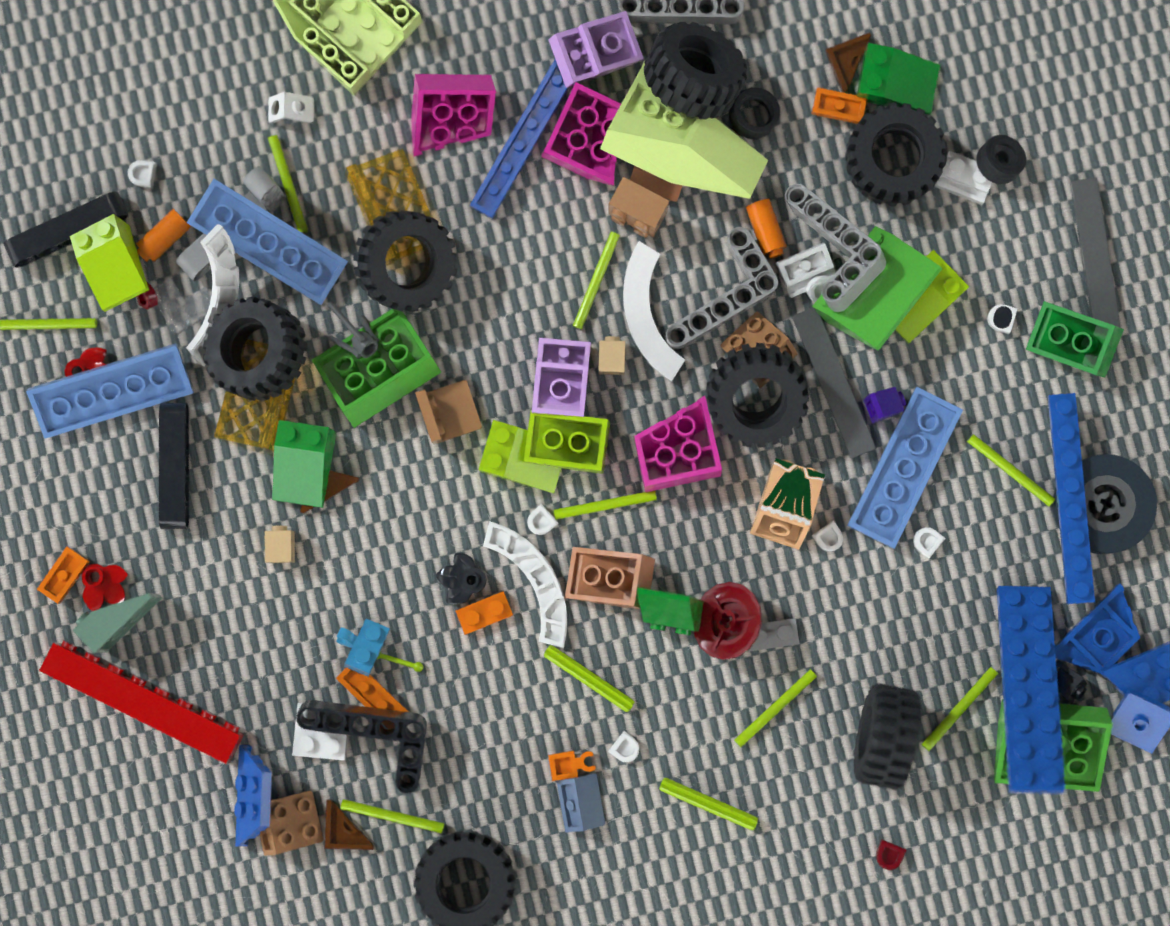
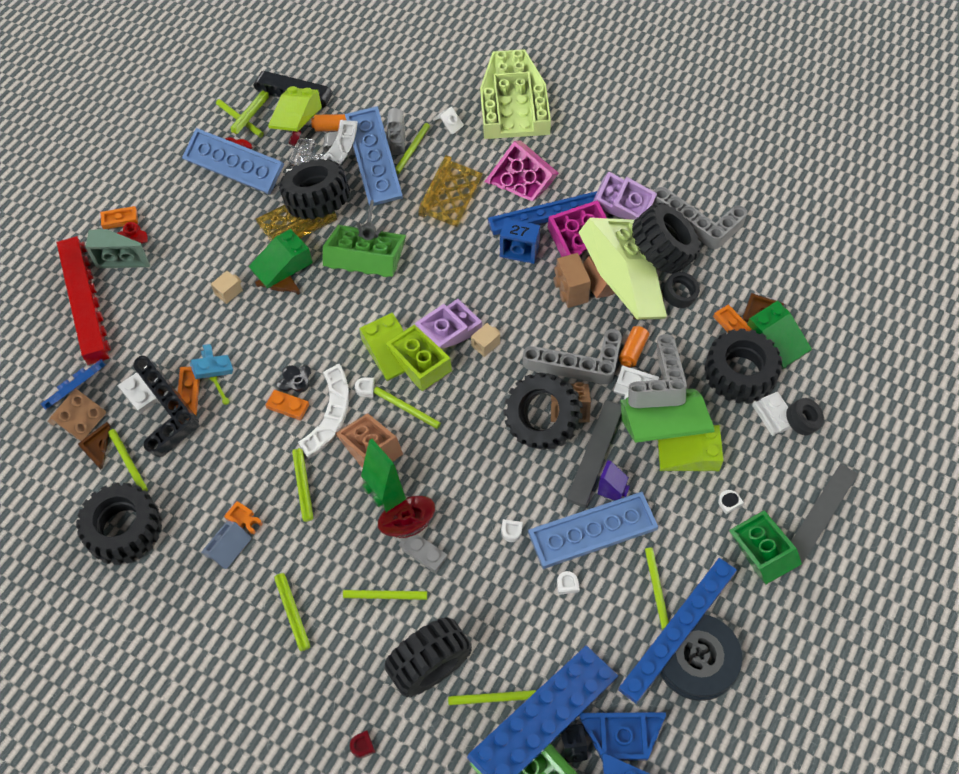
camera: 40 degrees right, 25 degrees down
(53, 308) = (249, 112): none -> lime axle
(142, 173) = (352, 96): white tile -> none
(173, 465) = (222, 214): black beam -> none
(437, 266) = (428, 185): black tyre -> none
(448, 412) = (373, 296): medium nougat bracket -> none
(537, 207) = (519, 241): none -> blue brick
(596, 280) = (515, 302): lime bar -> none
(625, 748) = (281, 538): white tile -> none
(639, 314) = (522, 334): white tile -> none
(679, 449) = (471, 410): dark pink wedge -> none
(787, 503) = (504, 488): slope -> none

